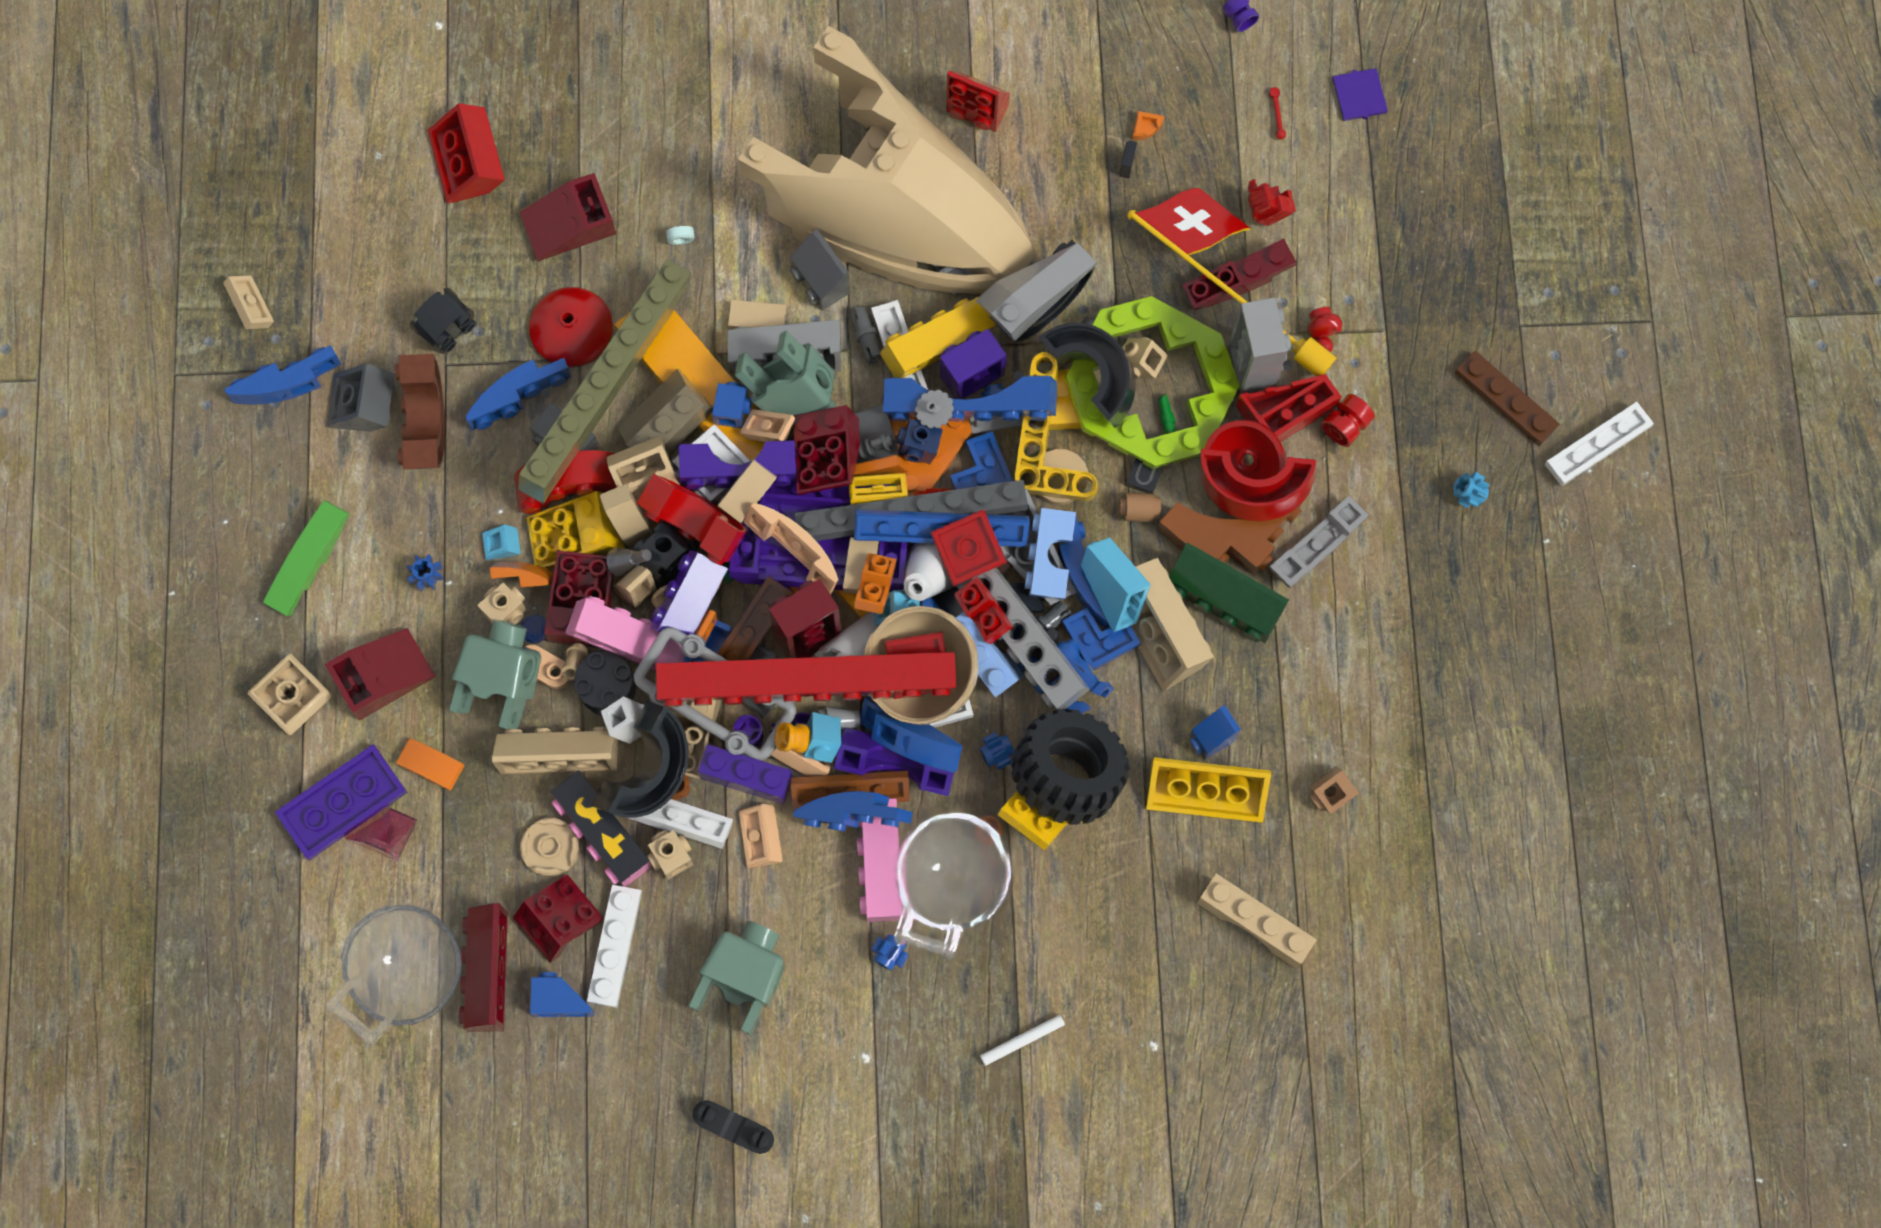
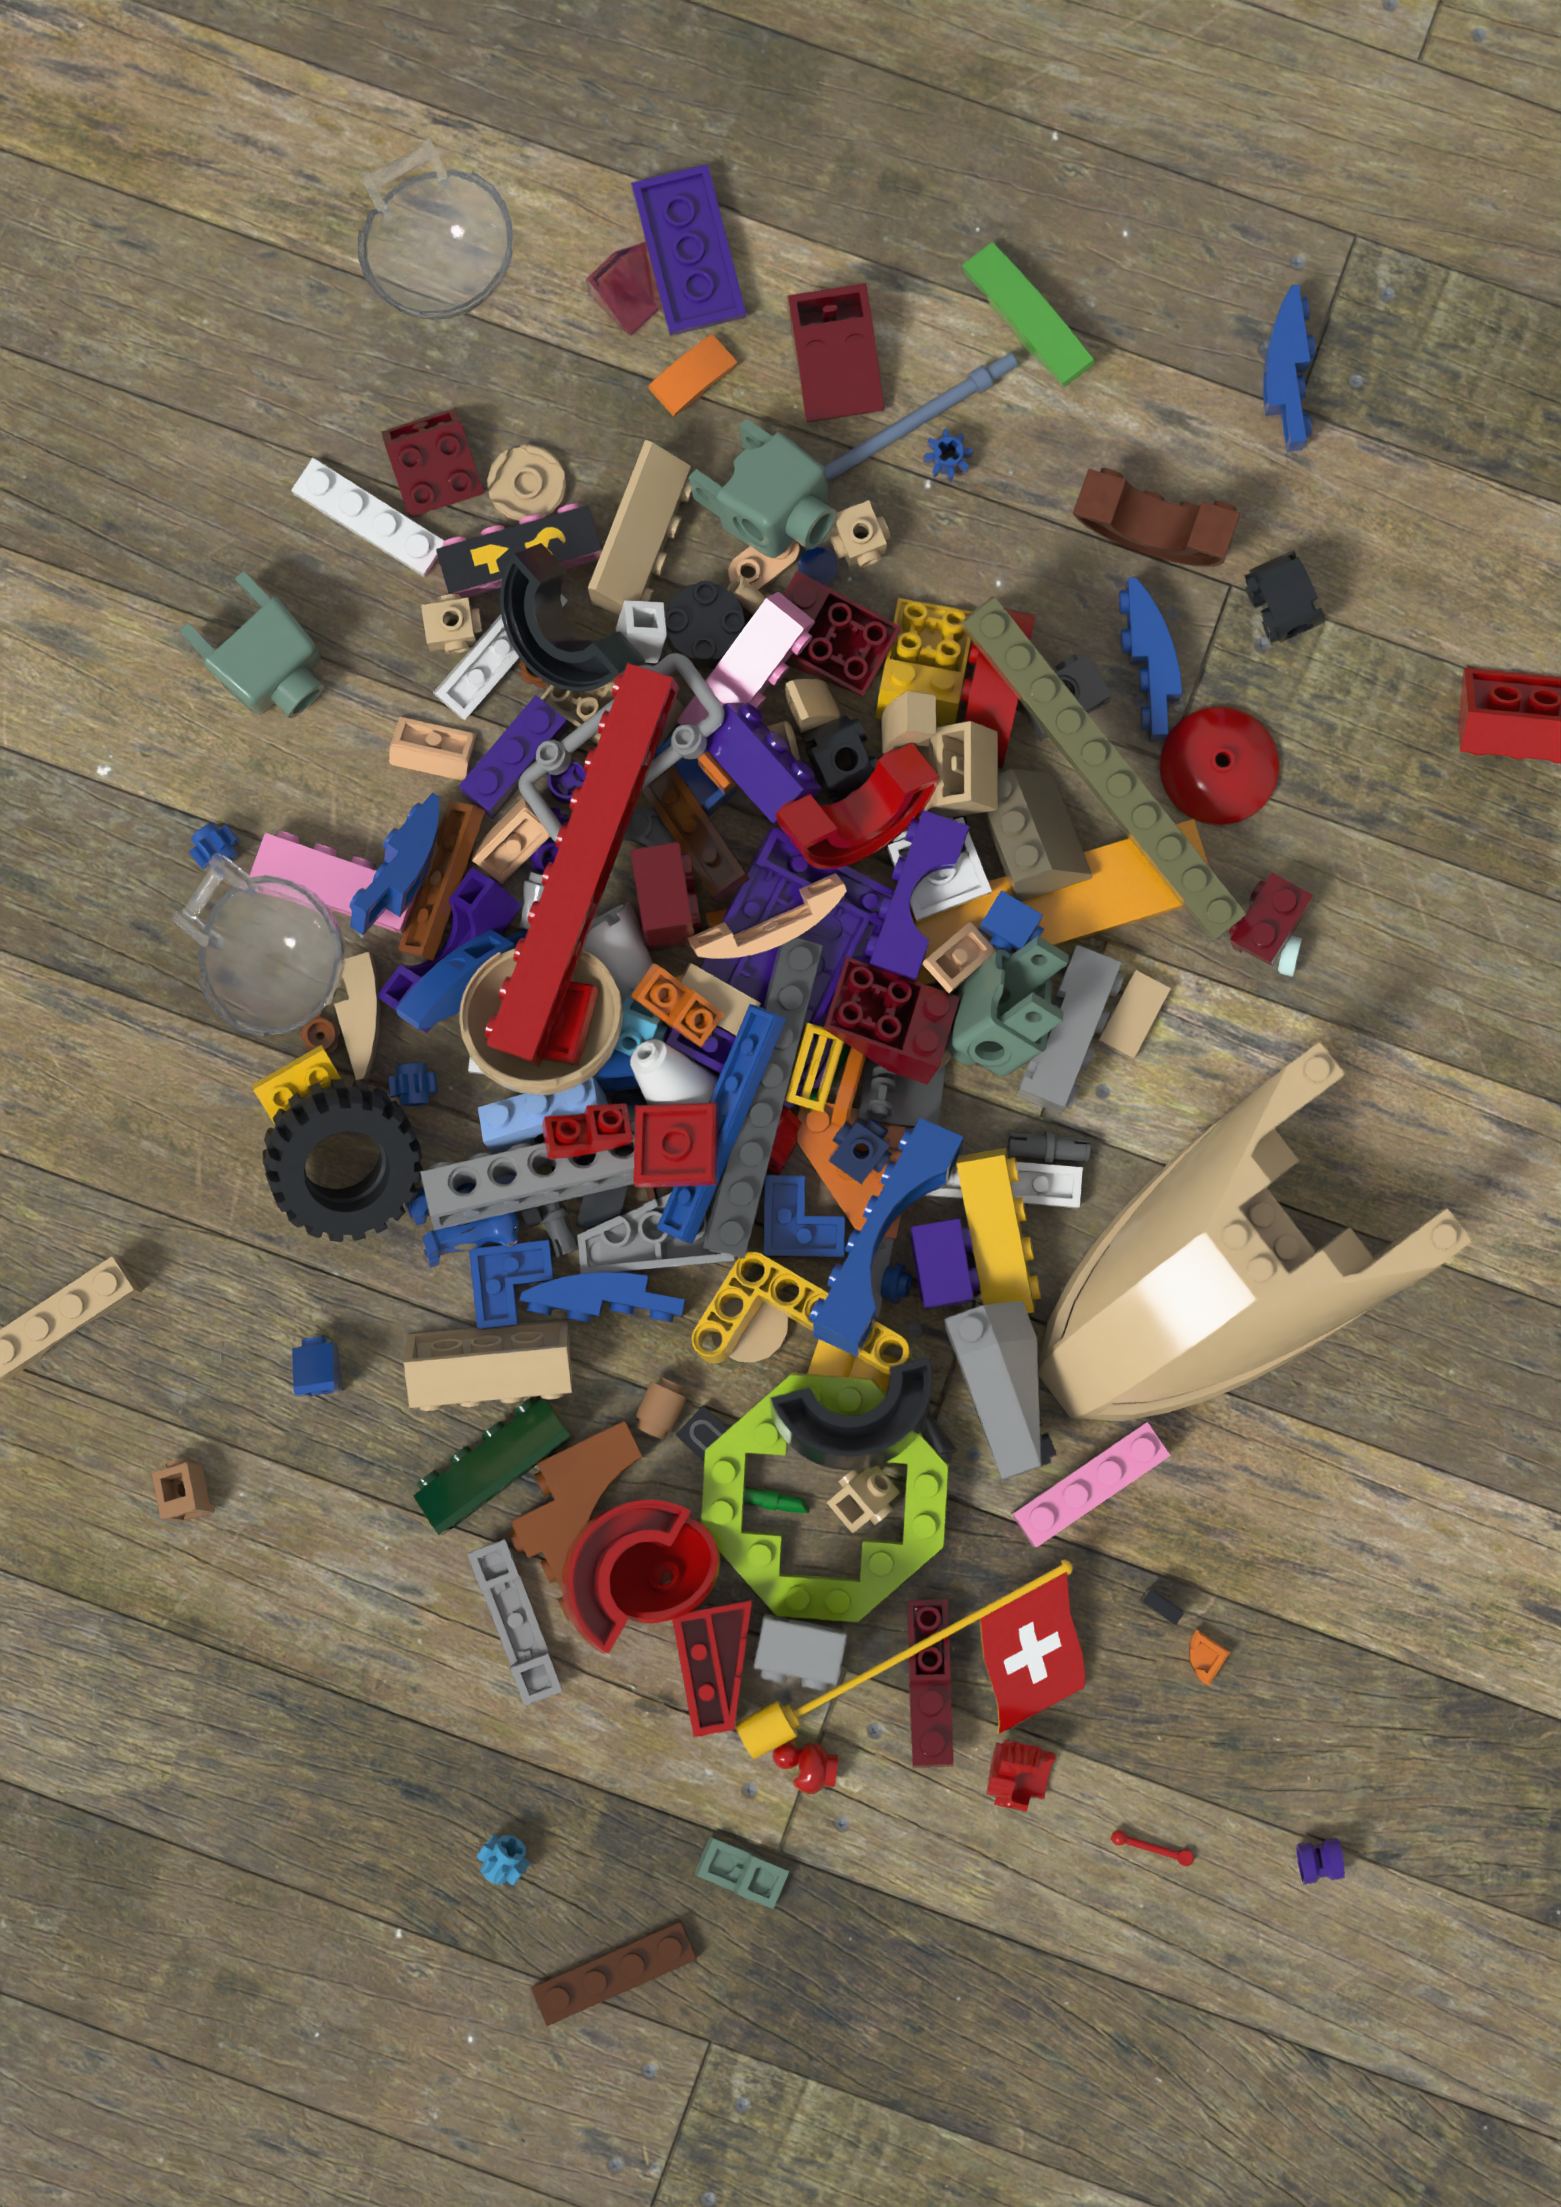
camera: 115 degrees right, 10 degrees up
(248, 302) = (1417, 359): tan plate -> none
(292, 676) = (863, 210): tan brick -> none
(361, 398) = (1220, 456): dark grey slope -> none
(365, 575) = (978, 381): none -> sand blue bar
(485, 969) = (399, 348): dark red slope -> none
(501, 542) = (953, 568): medium azure slope -> none
(528, 574) = (891, 584): orange slope -> none
(555, 998) = (329, 423): blue slope -> none
(568, 218) = (1371, 815): dark red slope -> none
(623, 560) = (849, 702): flat silver cone -> none
(654, 248) = (1270, 919): none -> dark red bracket
(733, 1127) = (85, 575): black piece -> none
(747, 490) = (871, 890): tan tile -> none
(792, 737) = (524, 824): light orange wheel -> none
(820, 271) = (1158, 1117): dark grey slope -> none
(824, 737) = (512, 864): medium azure brick -> none
(934, 409) = (888, 1181): light grey piece -> none
(969, 801) = (360, 1013): none -> tan slope
(975, 101) = (1330, 1432): red slope -> none
(1022, 1040) = (41, 968): white bar -> none
(1046, 579) = (664, 1272): light blue arch -> none
(1068, 223) = (1090, 1484): none -> bright pink brick
(1115, 583) = (560, 1320): medium azure slope -> none
(1208, 789) = (251, 1332): yellow slope -> none
(1351, 416) = (665, 1738): red wheel -> none
(1359, 94) = (1135, 1977): dark purple piece -> none
(1407, 345) = (741, 1872): none -> sand green slope
(1599, 444) = (497, 2067): white plate -> none

